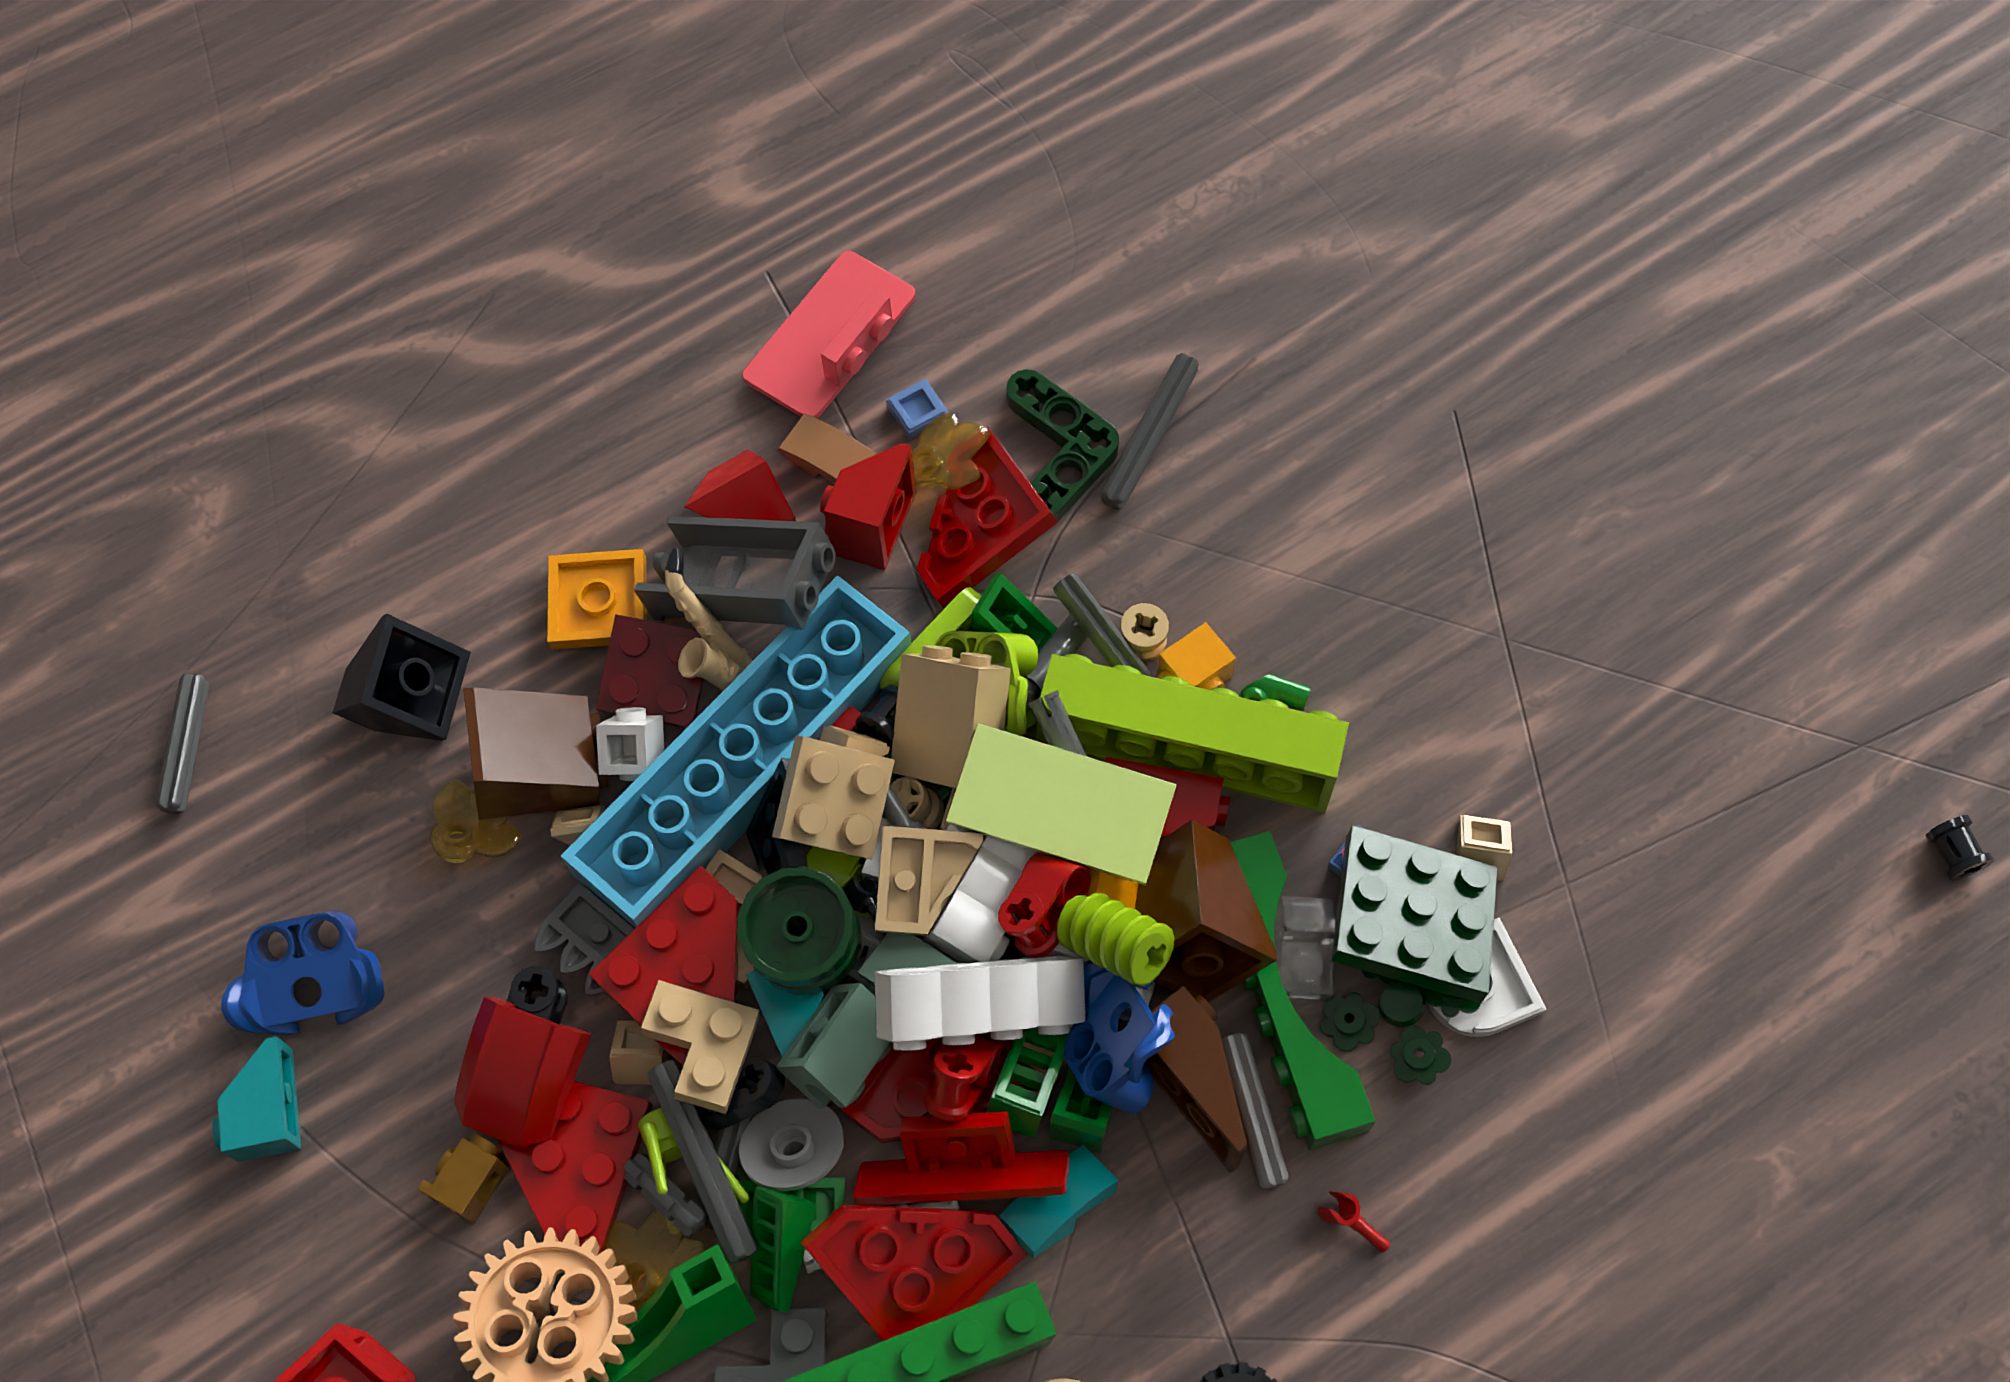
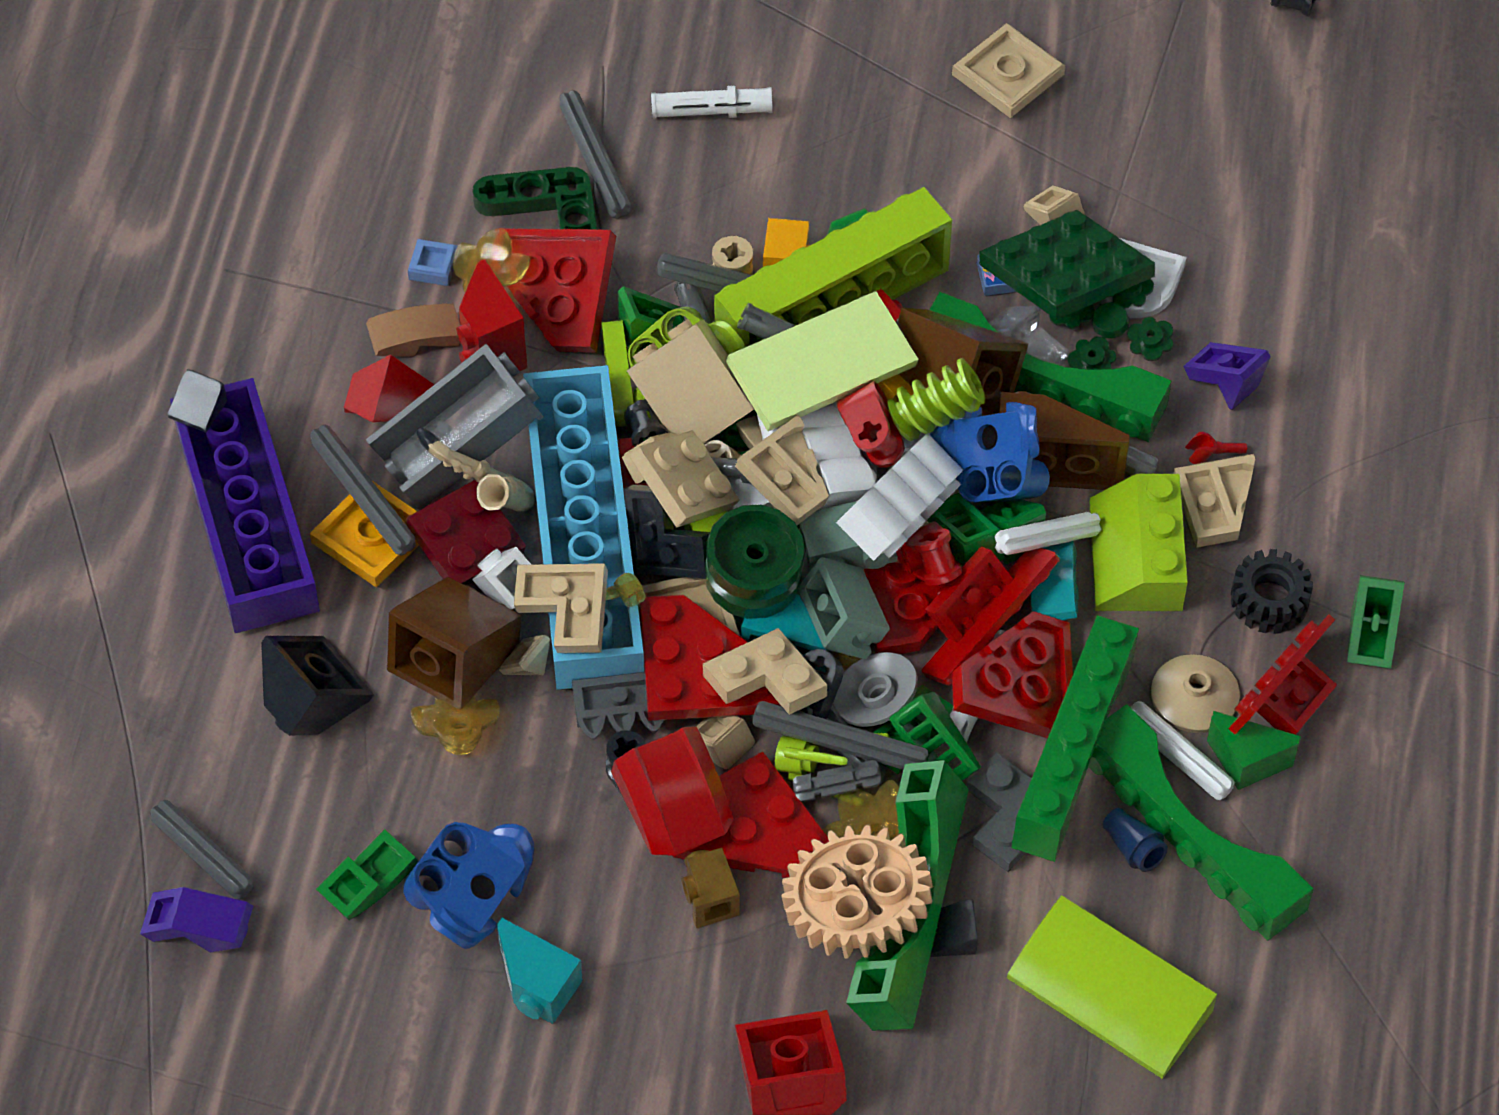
camera: 50 degrees left, 10 degrees down
(103, 800) = (199, 916): none -> dark purple slope
(259, 890) = (369, 877): none -> green slope
(525, 486) = (248, 514): none -> dark purple brick
(568, 366) = (197, 401): none -> slope
(618, 558) = (363, 490): none -> dark grey axle
(627, 820) = (574, 593): none -> tan plate
(679, 853) = (628, 589): none -> clear yellow hand
(829, 335) = (323, 265): coral bracket -> none
(1091, 1155) = (1047, 533): none -> white axle
(1171, 1245) = (1140, 545): none -> lime slope
(1295, 1271) = (1215, 498): none -> tan wing
(1312, 483) = (712, 102): none -> white pin
(1449, 1157) = (1232, 367): none -> dark purple slope
(1593, 675) = (1008, 70): none -> tan plate

